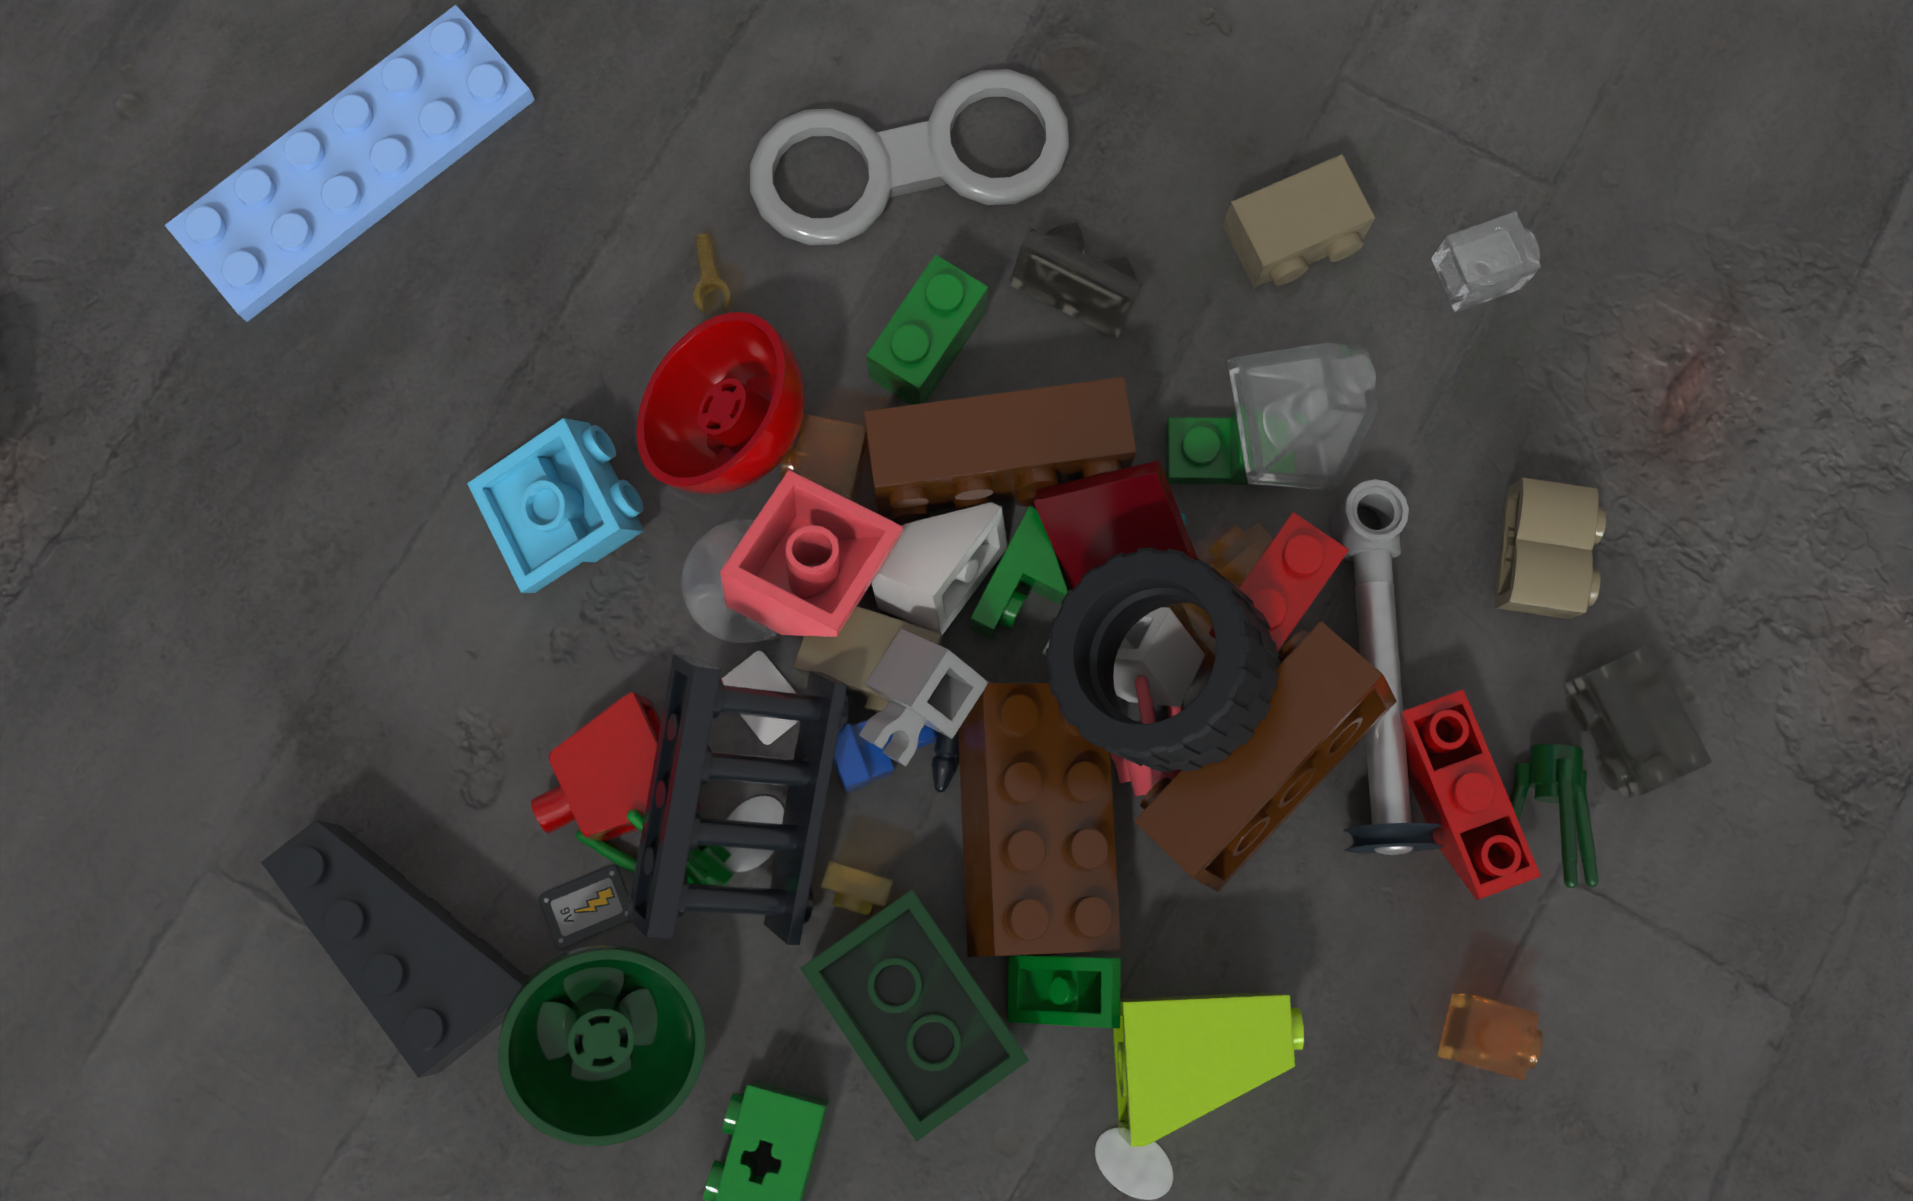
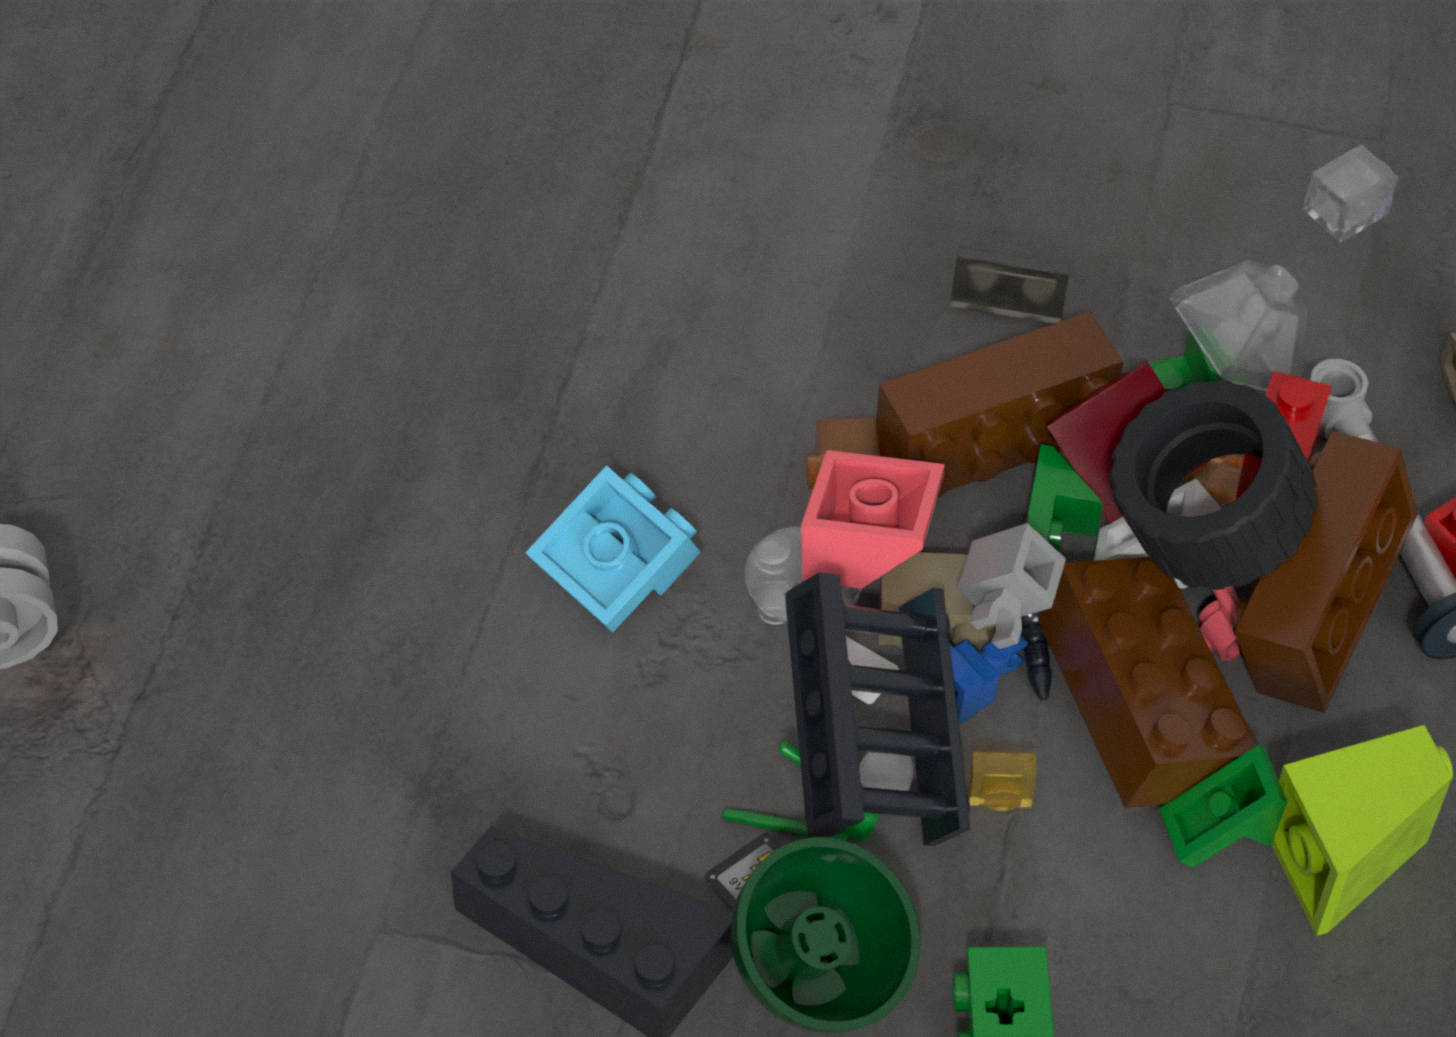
camera: 15 degrees left, 25 degrees down
(350, 163) = (324, 344): light blue plate -> none
(603, 771) = (738, 743): red torso -> none
(708, 275) = (686, 358): clear yellow hand -> none
(721, 406) = (744, 426): red piece -> none
(909, 157) = (826, 231): light grey bar -> none
(914, 1015) = (1096, 858): dark green brick -> none
(927, 331) = (897, 337): green brick -> none
(940, 565) = (977, 504): white slope -> none
(1135, 1171) = (1340, 956): flat silver sticker -> none
(1299, 222) = (1181, 202): dark tan brick -> none

